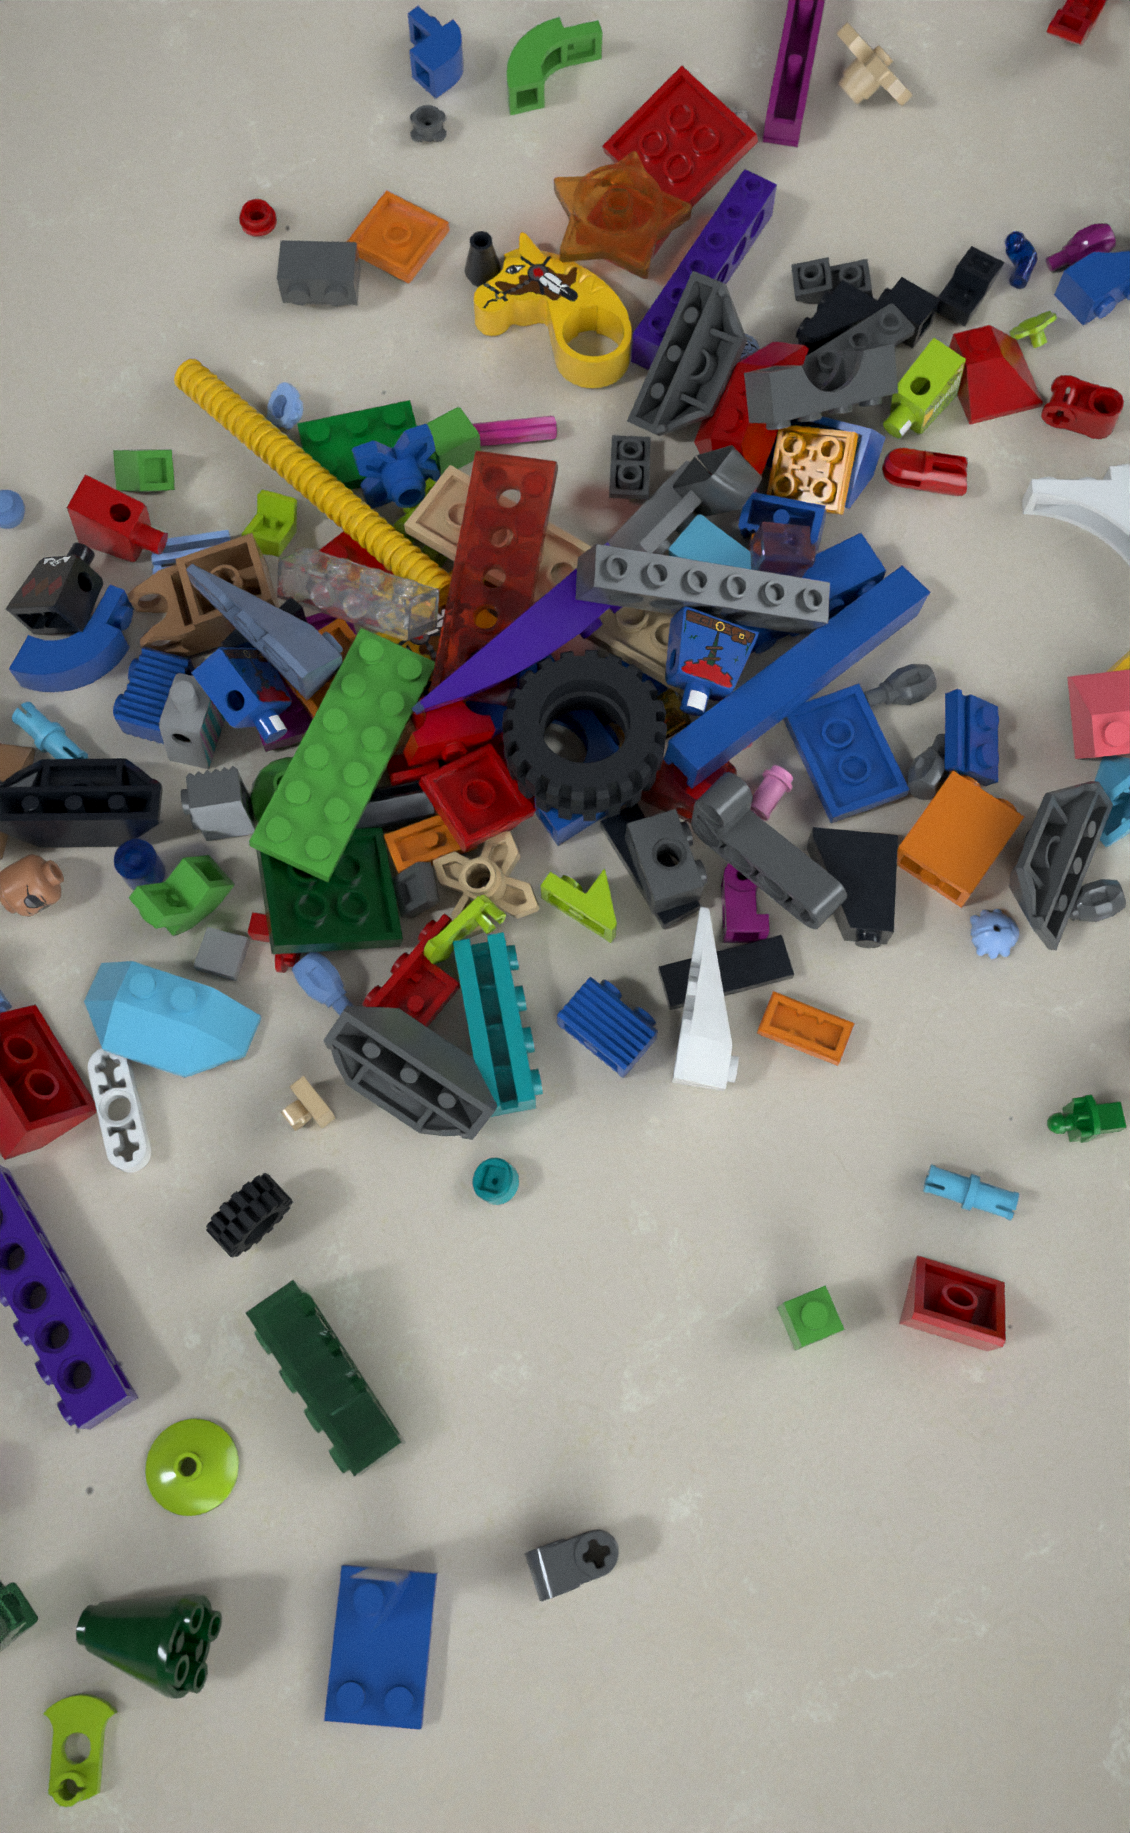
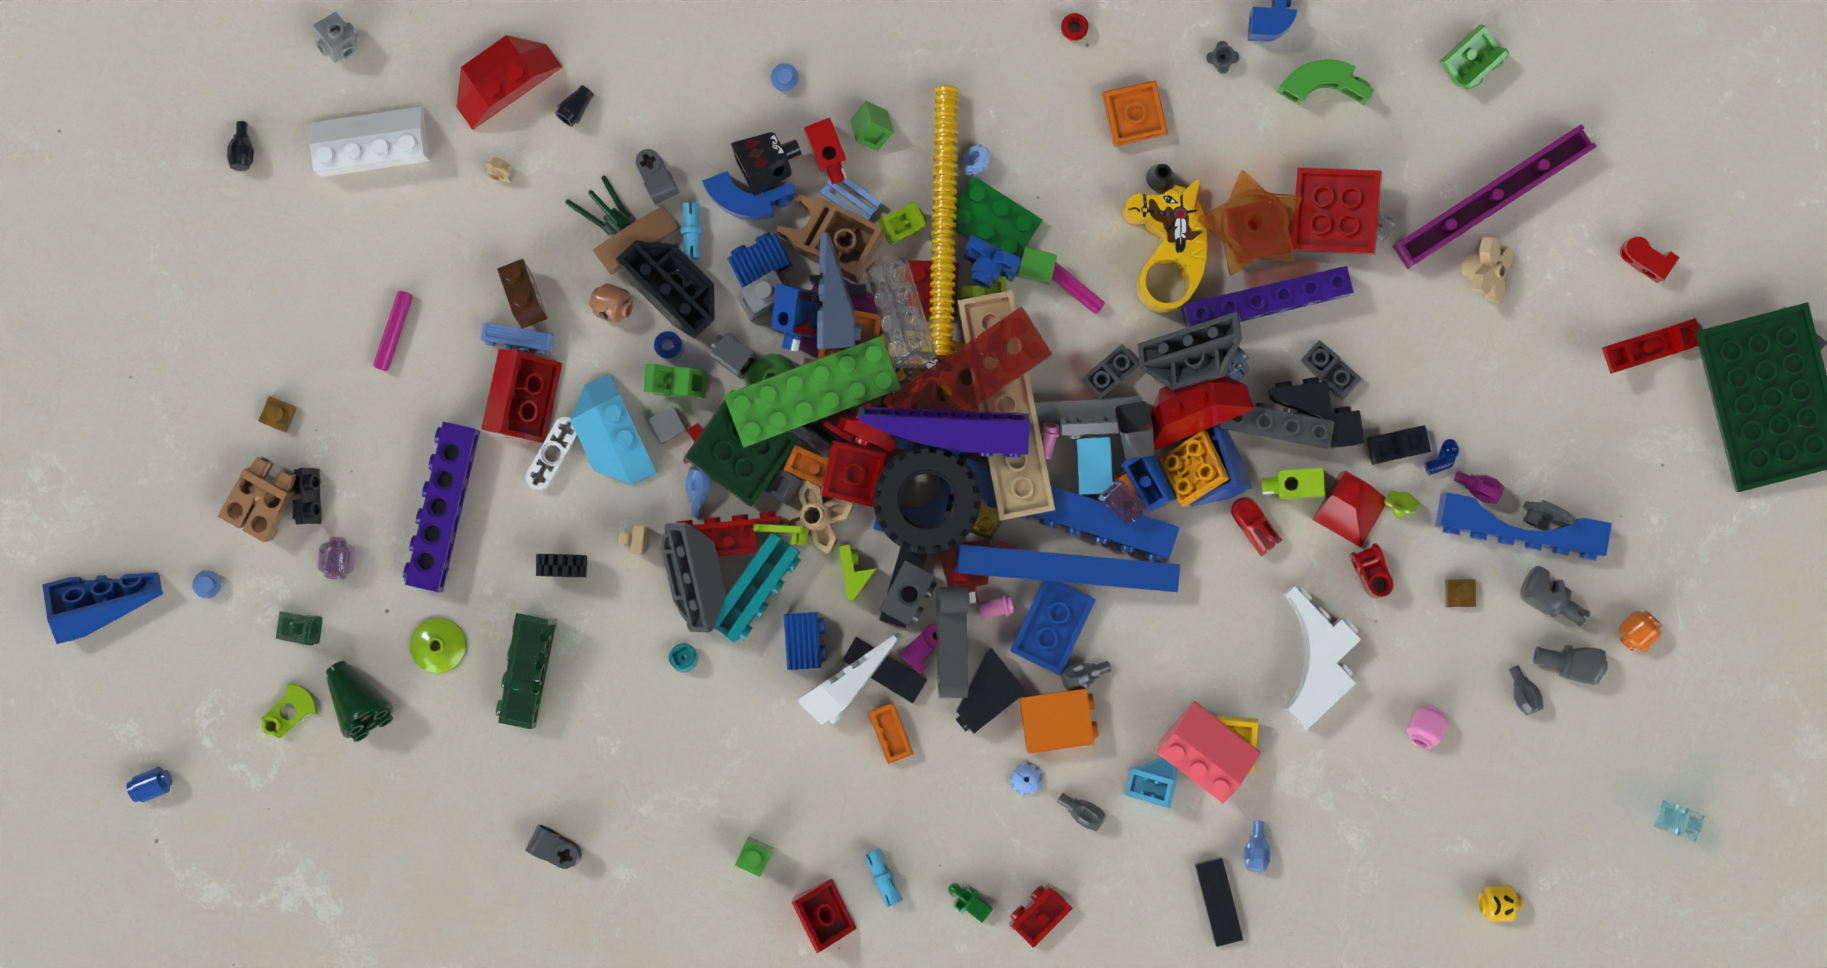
camera: 45 degrees right, 15 degrees up
(319, 272) = (1068, 99): dark grey brick -> none
(381, 1647) = (445, 798): blue piece -> none
(705, 657) = (1021, 522): blue torso -> none
(724, 591) = (1052, 490): dark grey brick -> none
(786, 393) = (1265, 449): dark grey arch -> none
(904, 686) = (1116, 622): dark grey piece -> none
(971, 737) = (1118, 680): blue plate -> none
(1058, 856) = (1086, 779): dark grey wedge -> none

